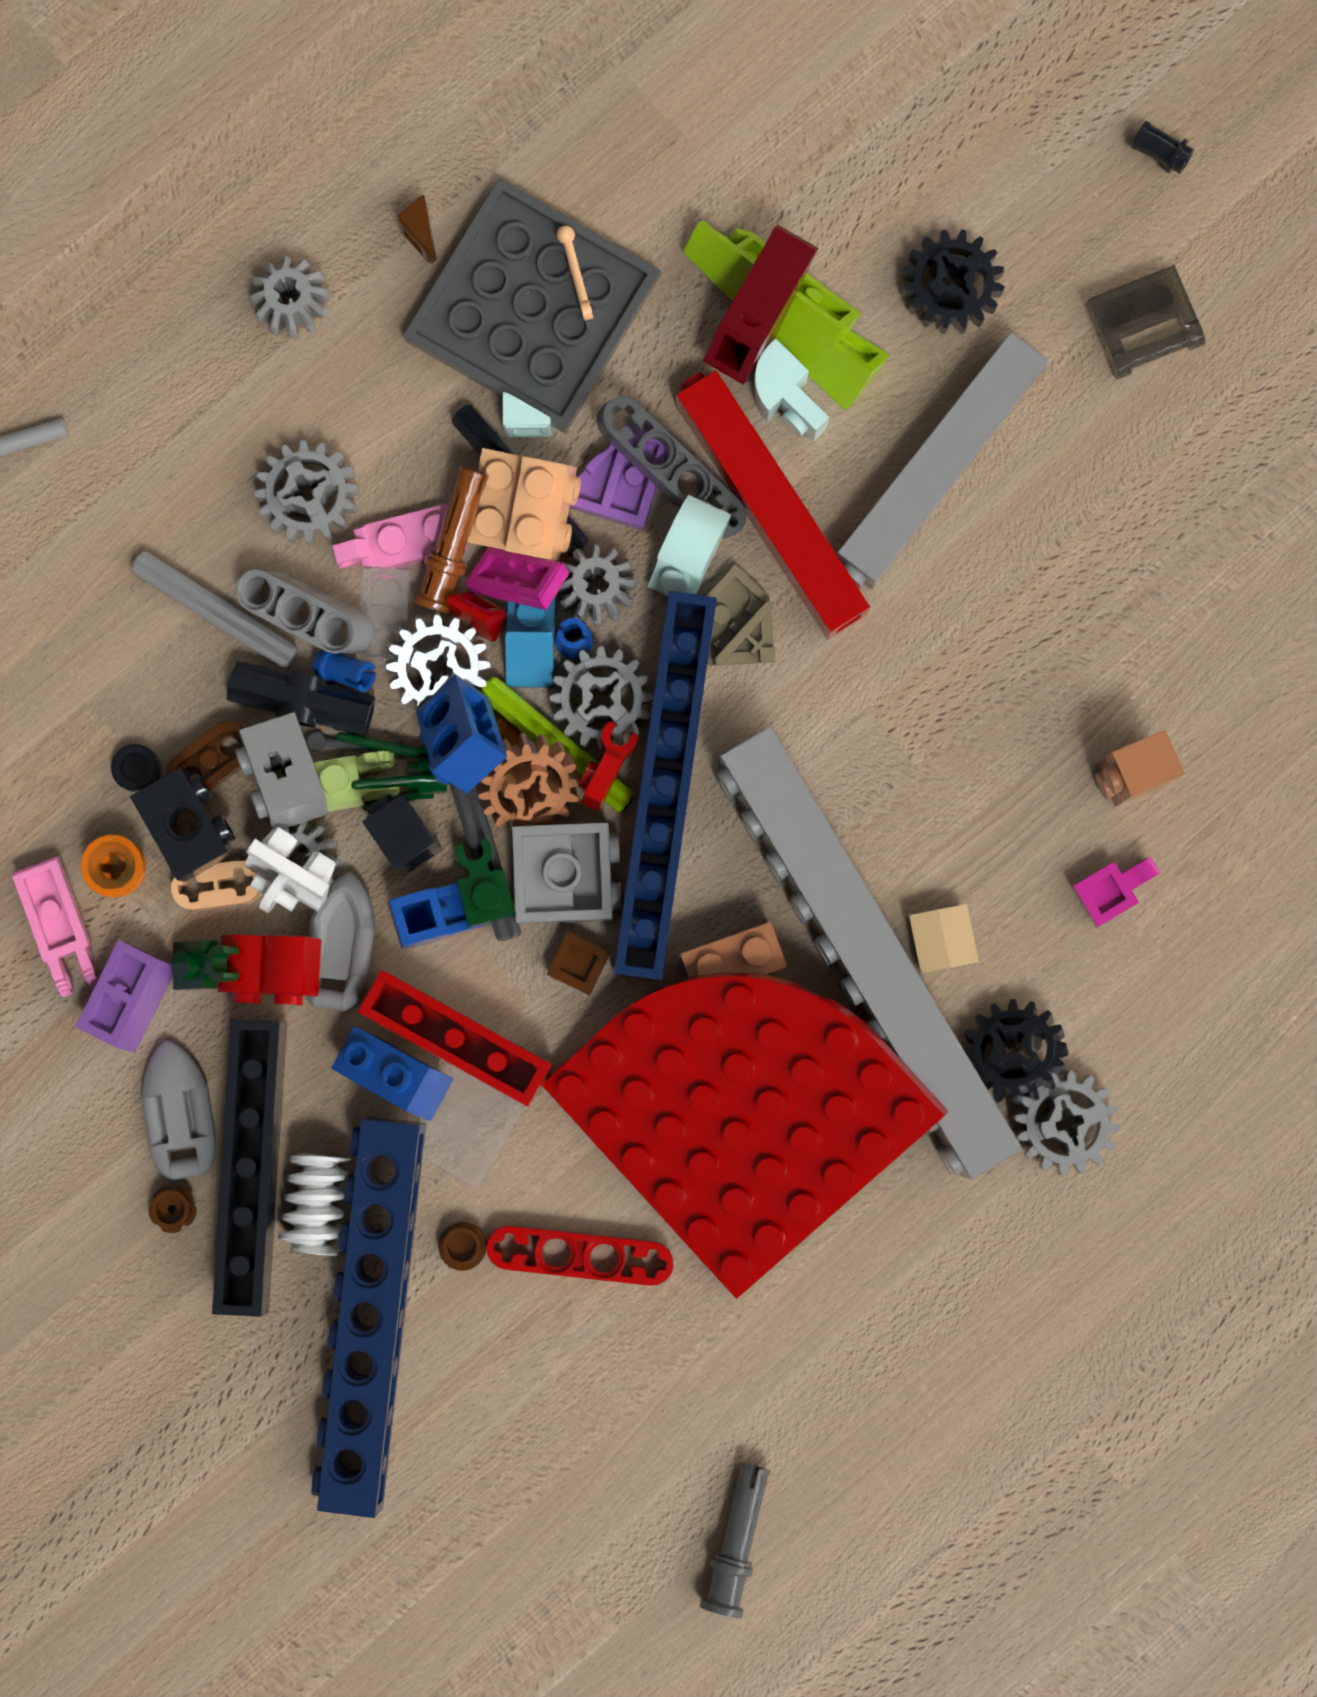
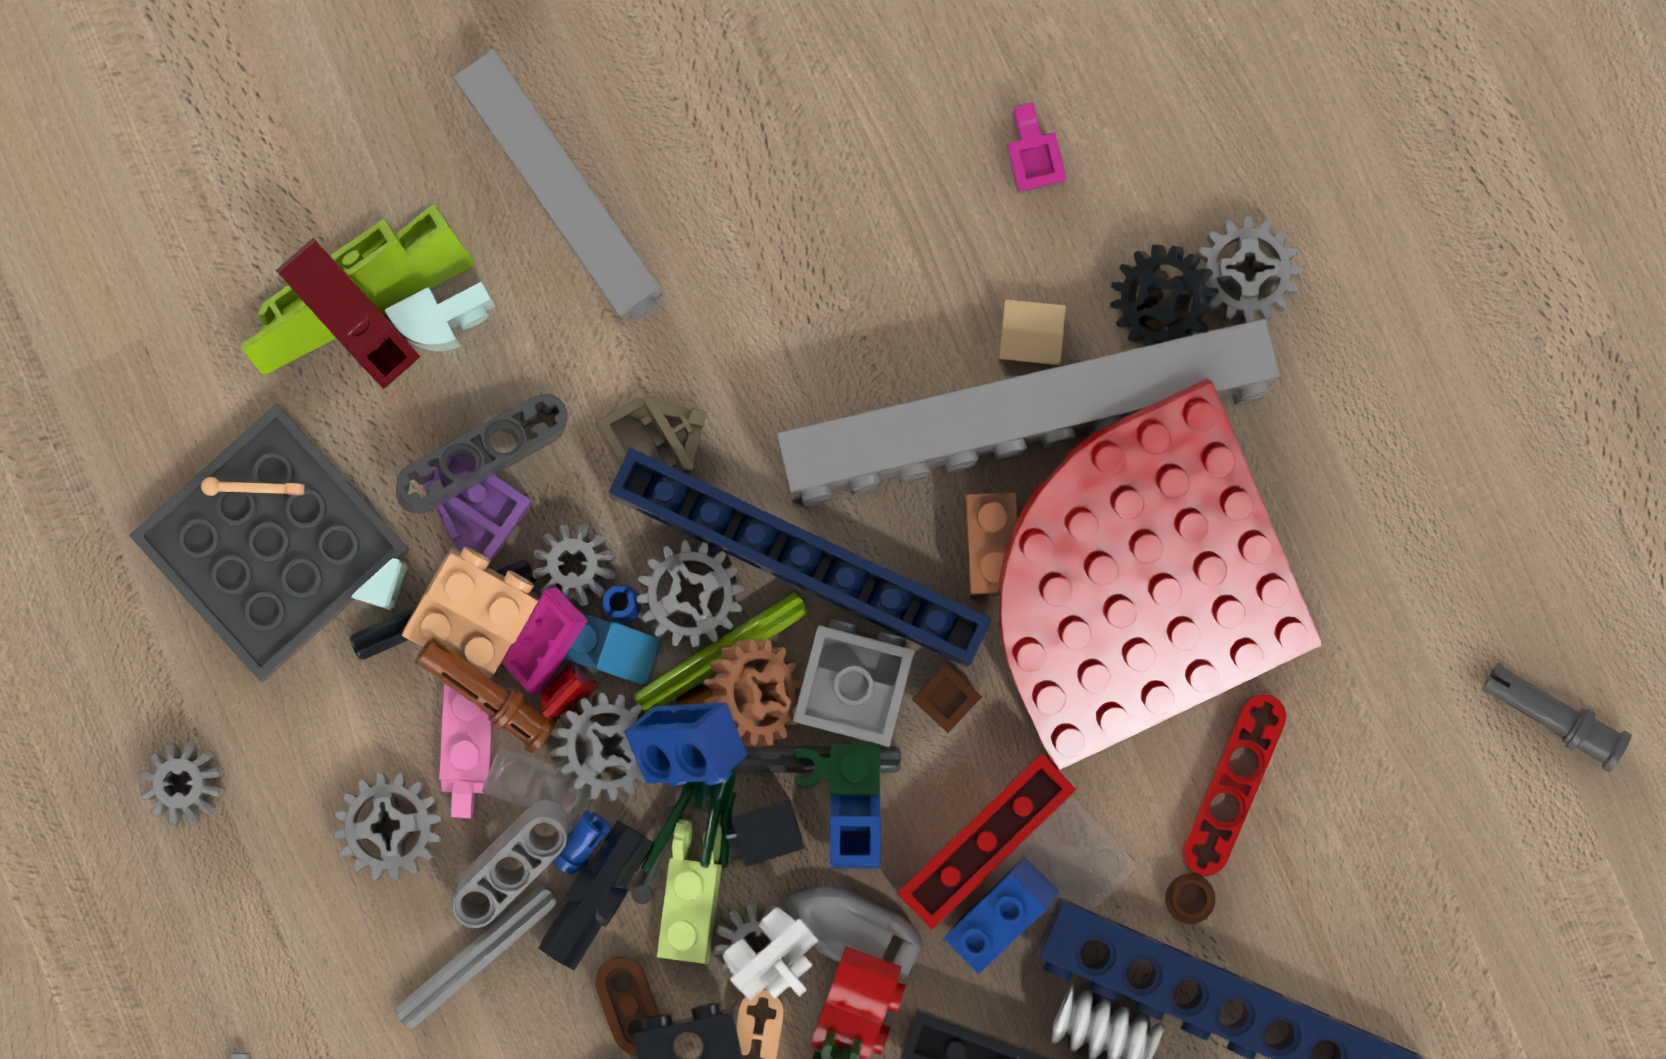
camera: 70 degrees left, 0 degrees up
(274, 747) = (642, 923): light grey brick -> none
(416, 228) = (155, 633): reddish brown slope -> none
(600, 777) = (771, 618): red plate -> none
(689, 547) = (568, 460): light aqua brick -> none
(771, 503) = (546, 366): red brick -> none
(937, 293) = (399, 111): black gear -> none
(1138, 769) = (926, 90): nougat piece -> none

